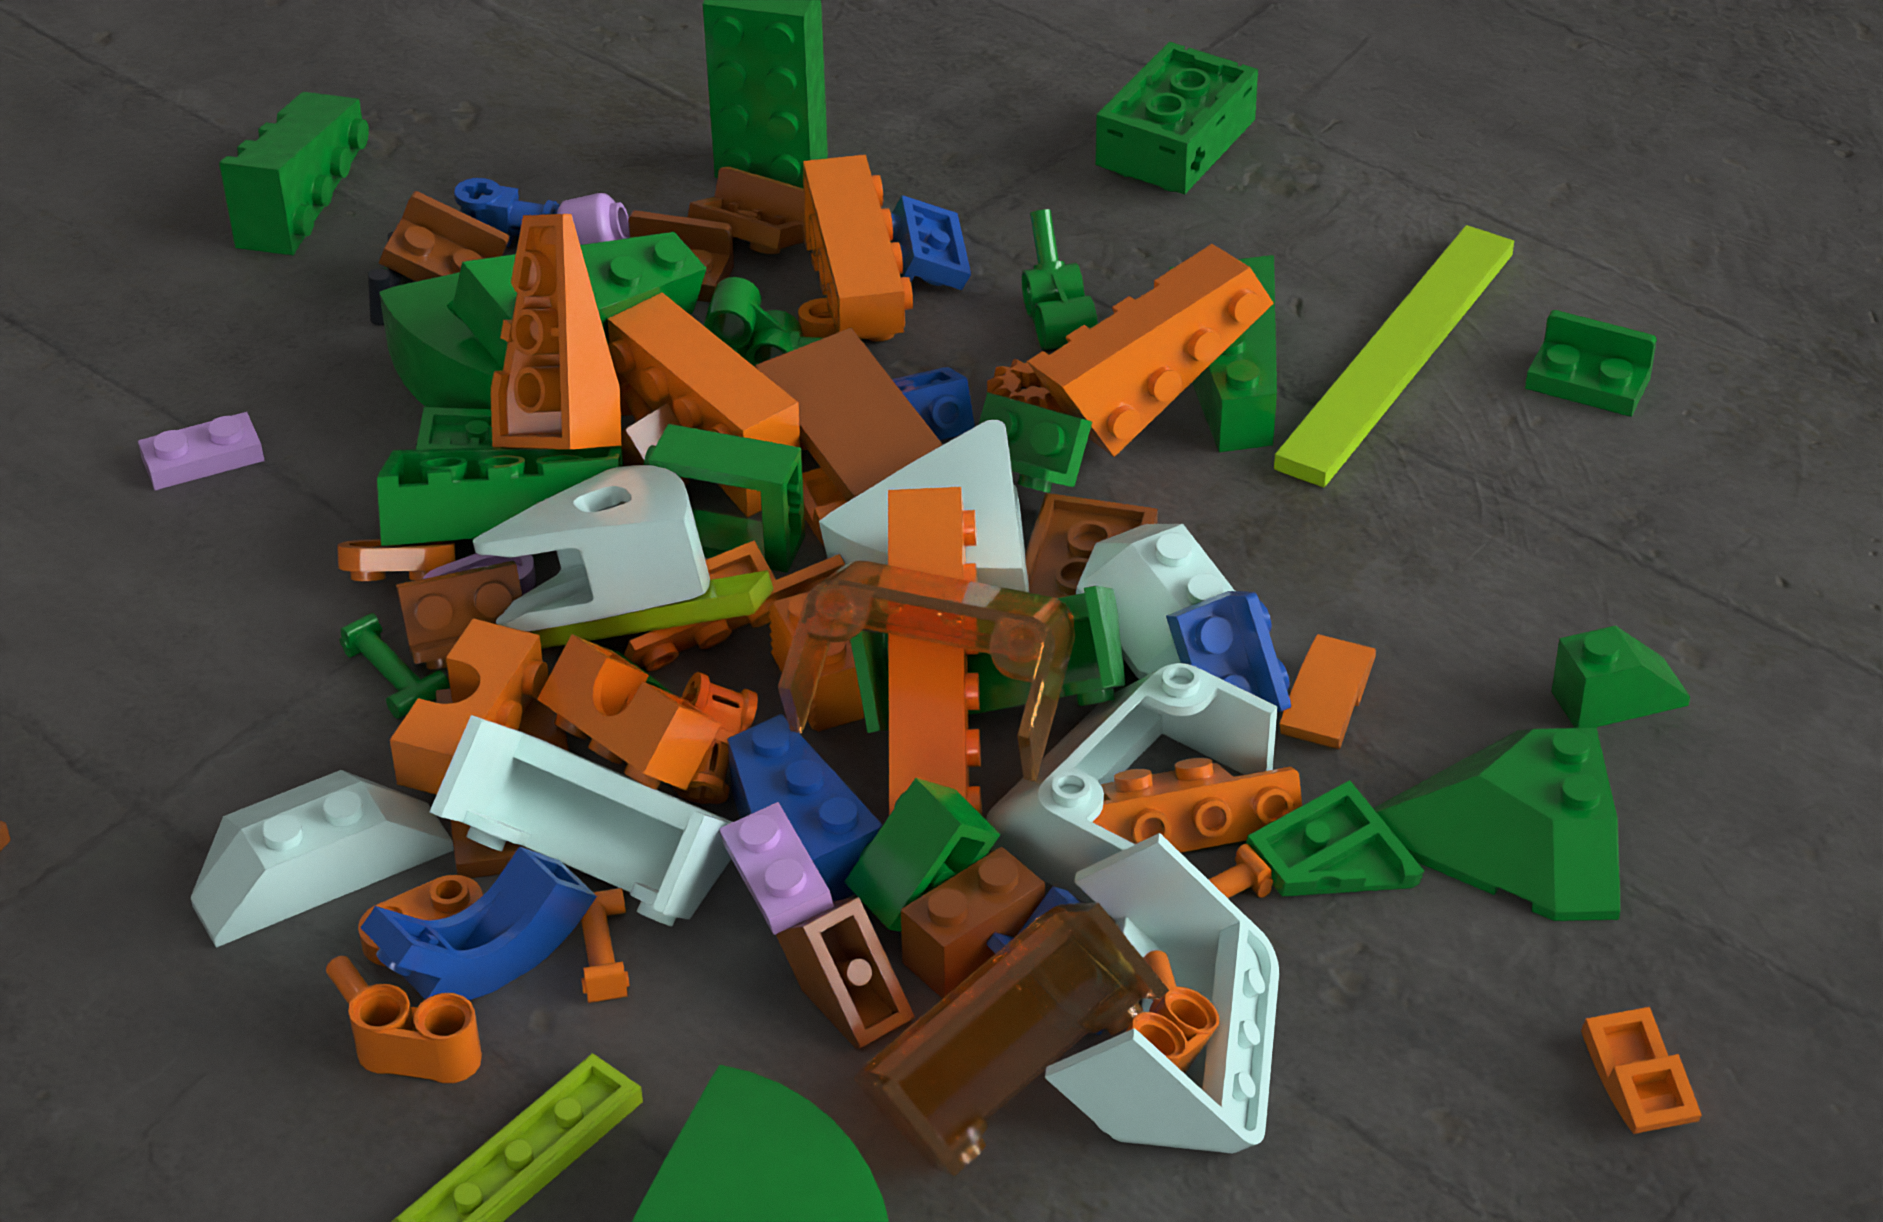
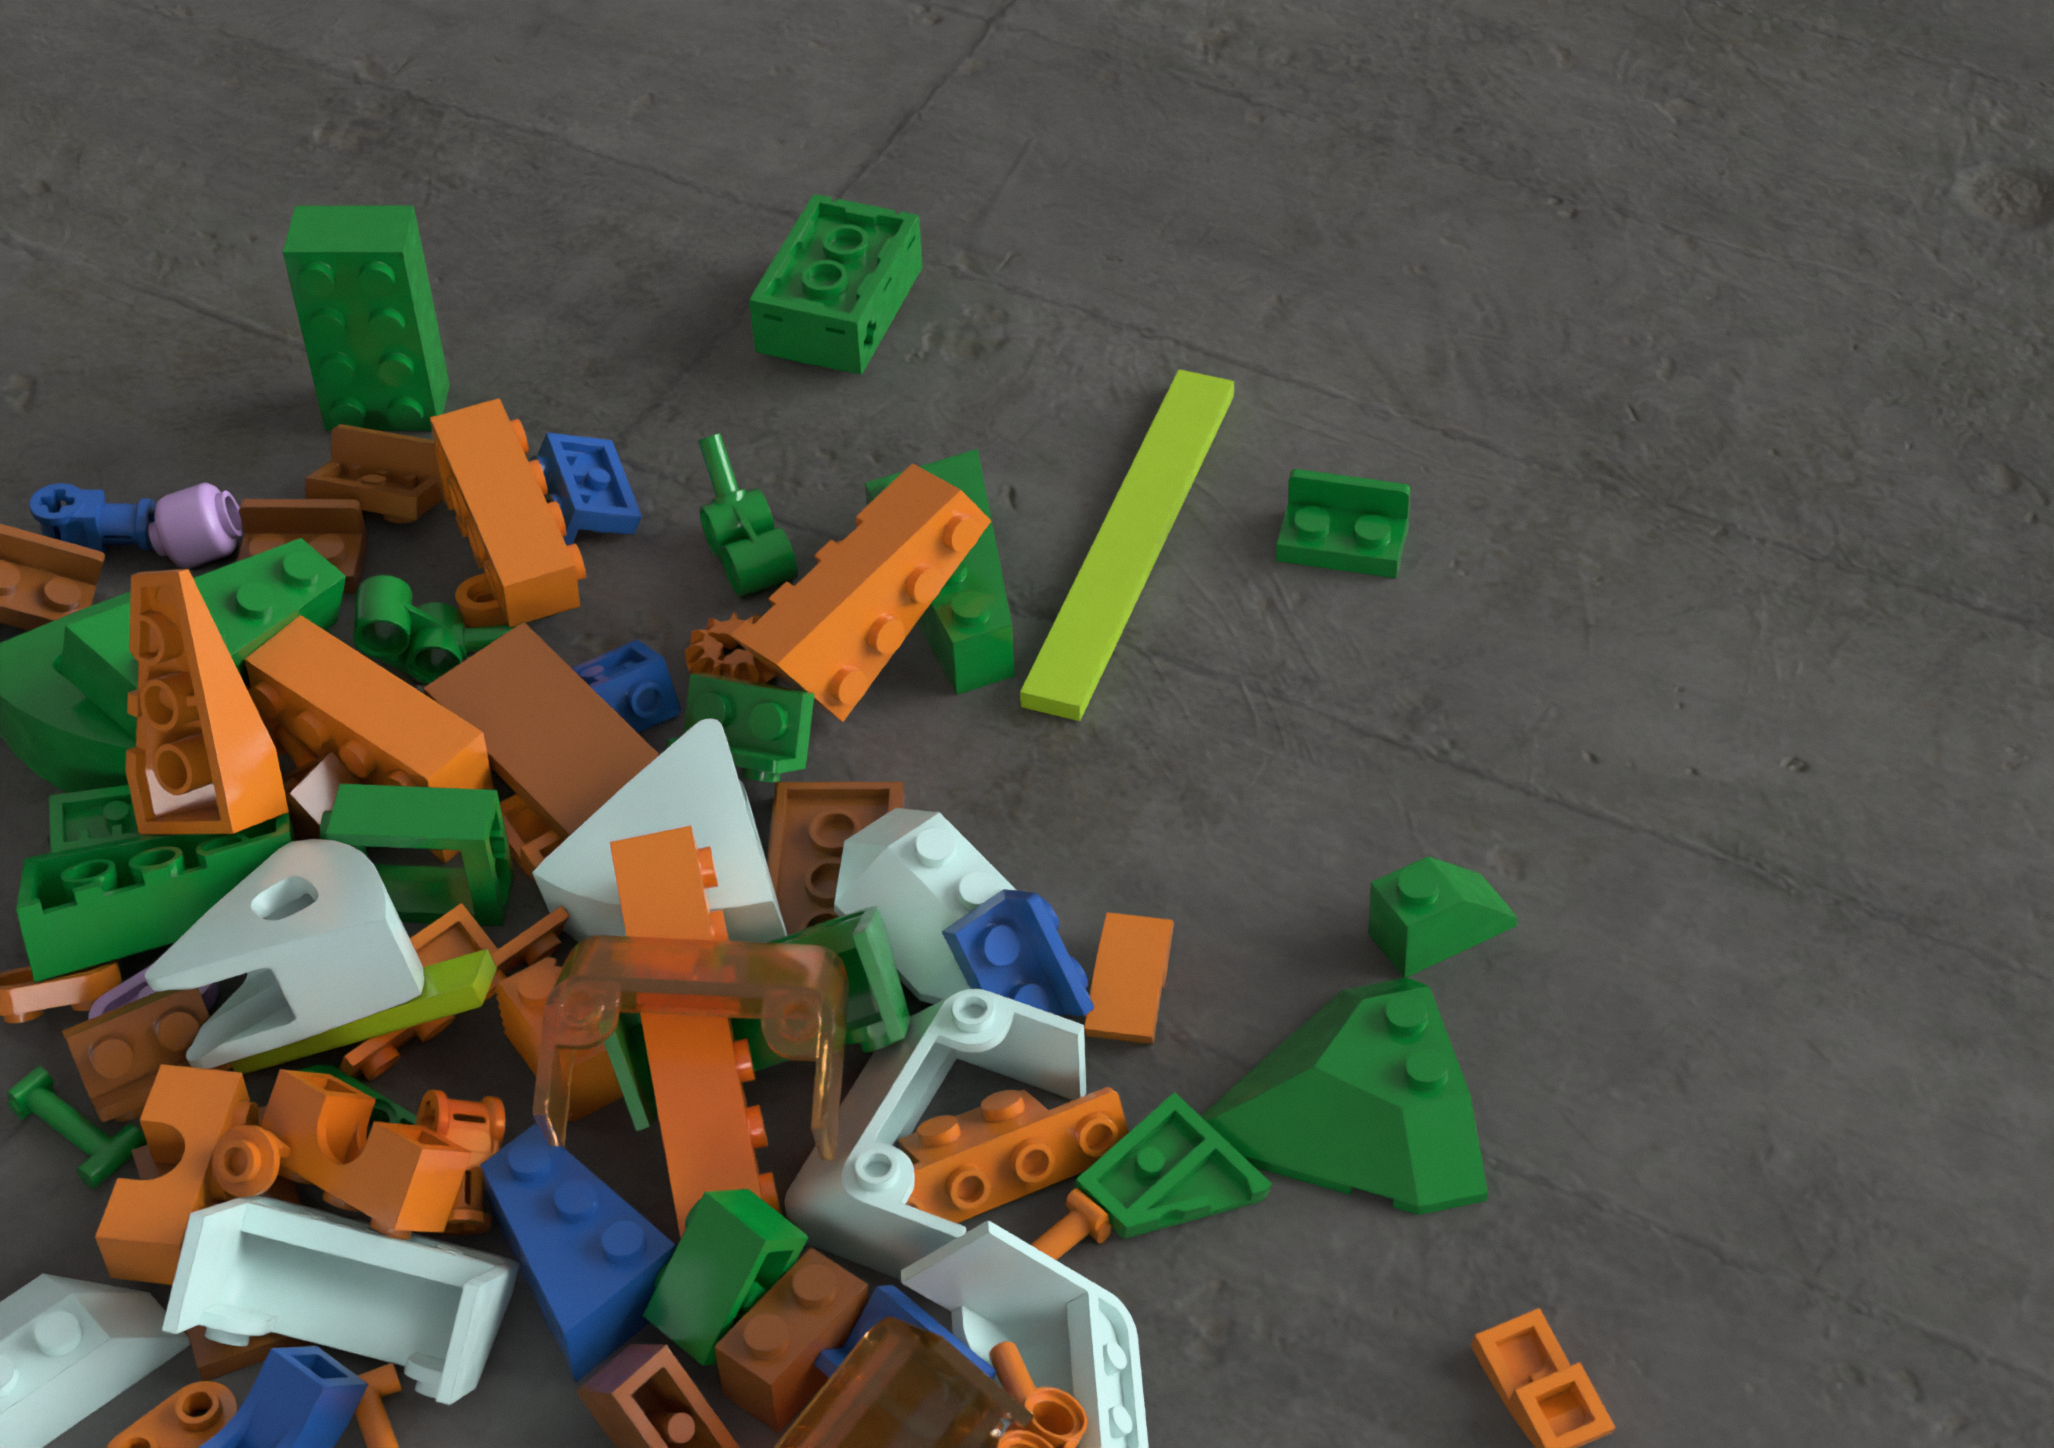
camera: 10 degrees left, 5 degrees up
(530, 701) = (248, 1160): none -> orange plate
(776, 868) = (566, 1322): lavender plate -> none

